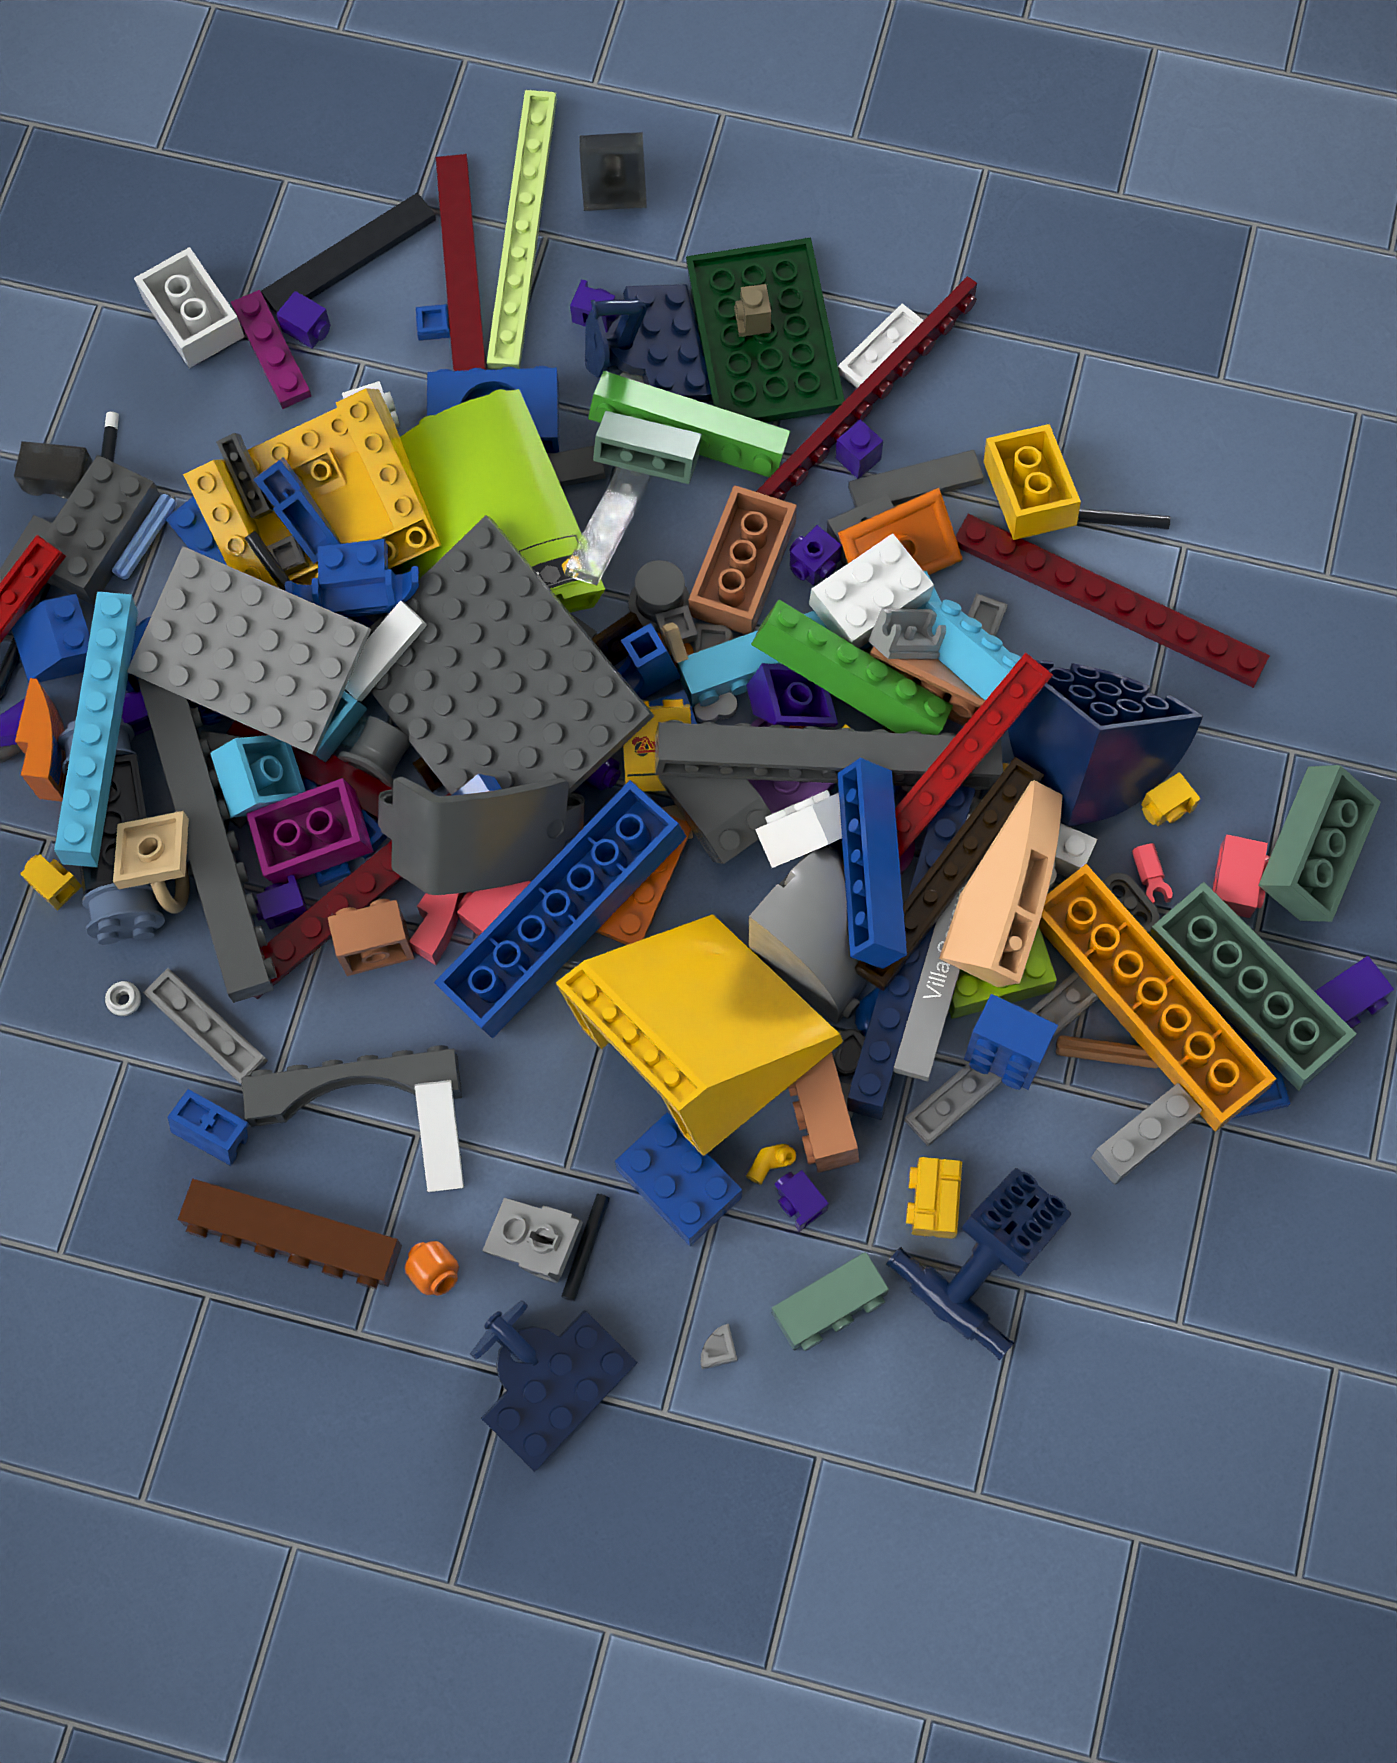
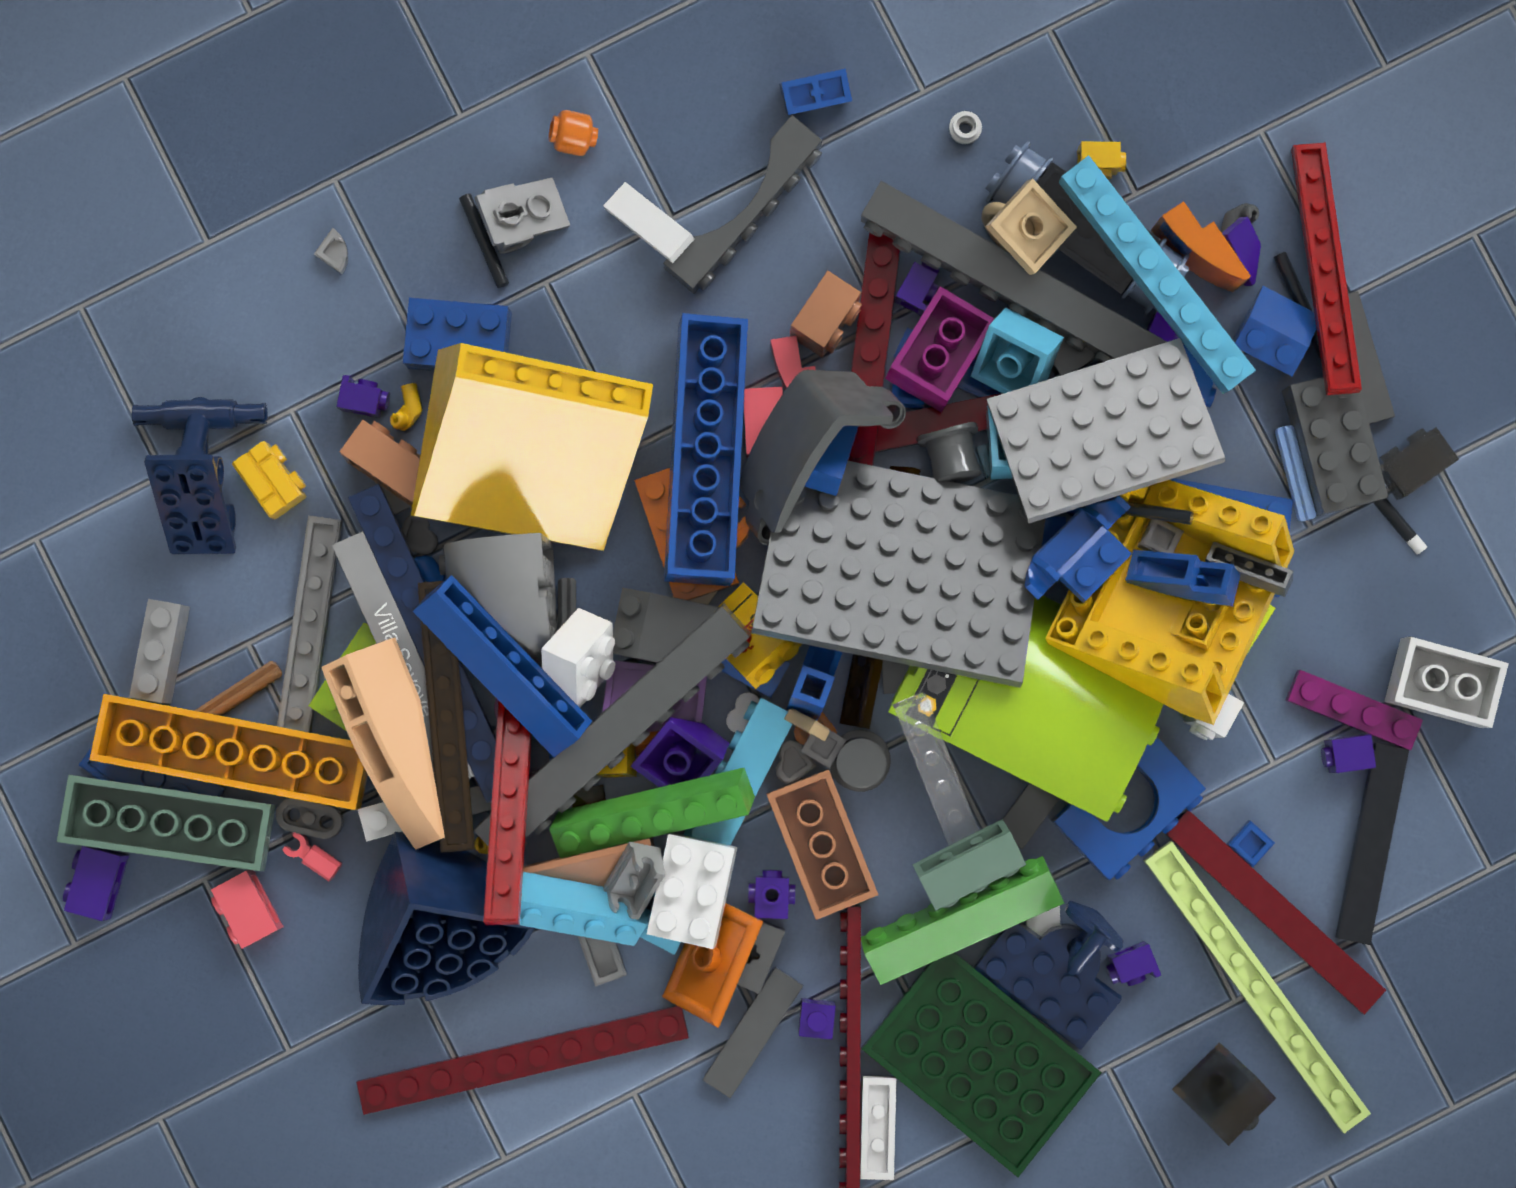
camera: 135 degrees right, 15 degrees up
(204, 1026) = (889, 159): light grey tile -> none
(290, 1233) = (691, 71): reddish brown brick -> none
(384, 649) = (1011, 527): white tile -> none
(553, 1384) = (421, 125): dark blue plate -> none
(753, 311) = (999, 1063): dark tan brick -> none
(830, 1302) = (281, 344): sand green brick -> none
(1009, 1042) = (297, 621): blue brick -> none
(1031, 482) = (657, 1102): yellow brick -> none
(1124, 519) = (584, 1127): black bar -> none
(1169, 800) = (344, 925): yellow brick -> none
(1320, 843) = (202, 981): sand green brick -> none

